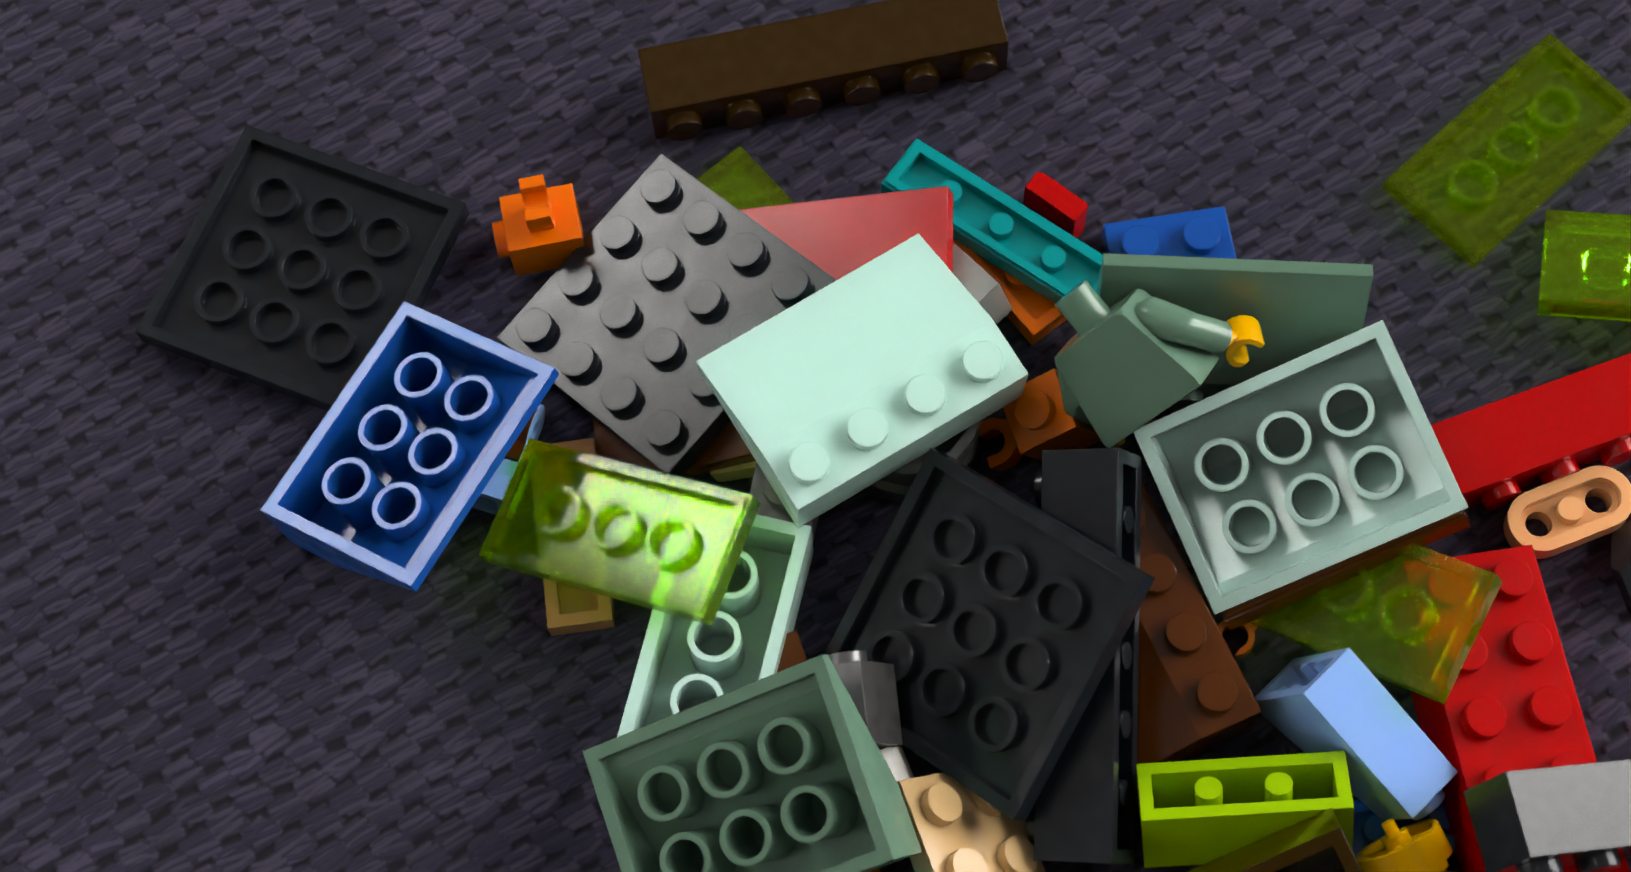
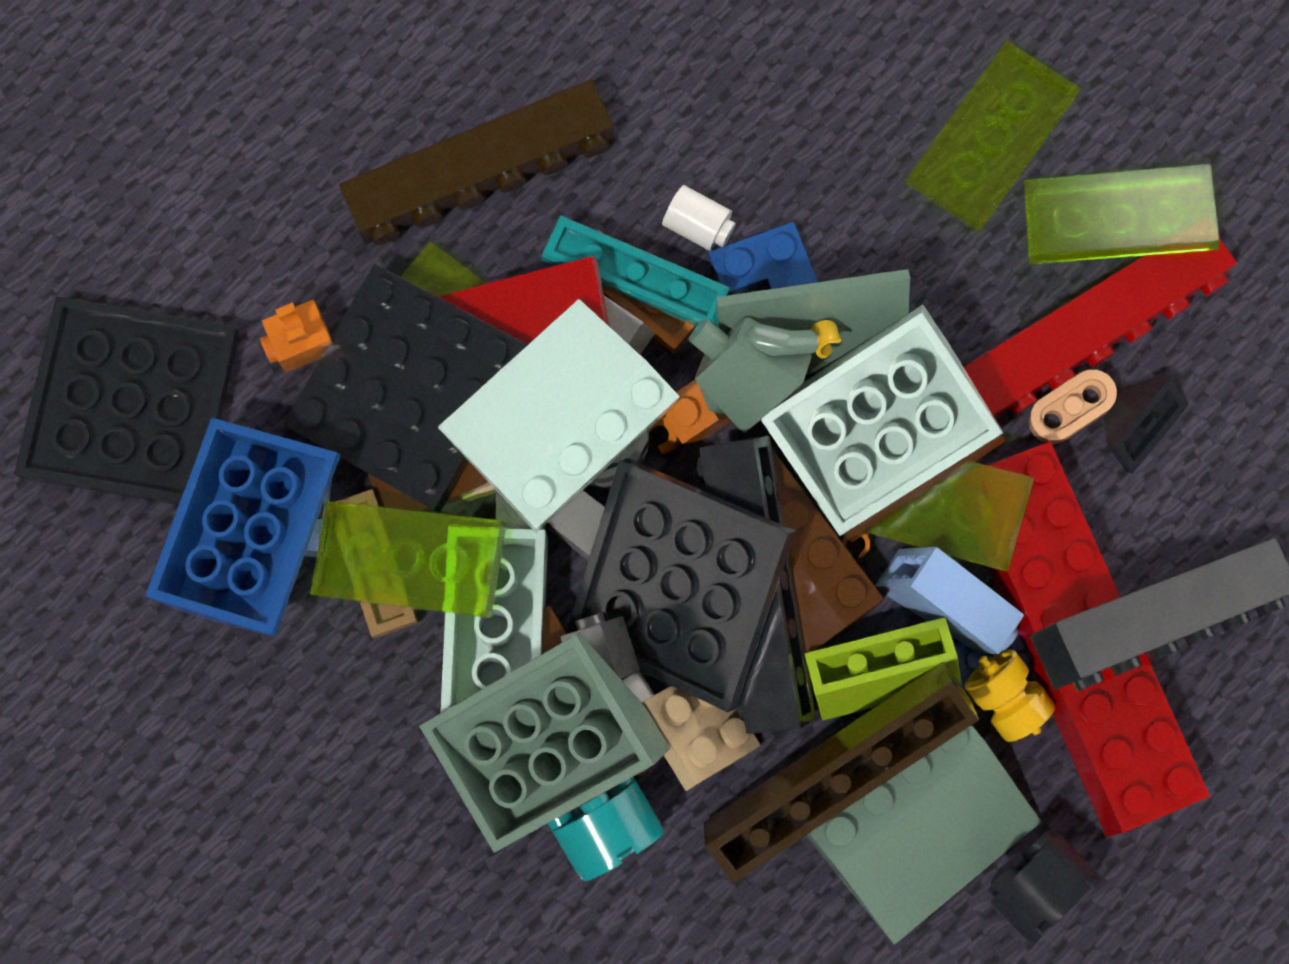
camera: 15 degrees left, 10 degrees up
(855, 531) = (578, 523): none -> light grey brick
(1056, 204) = (671, 247): red tile -> none
(1100, 179) = (699, 219): none -> white brick

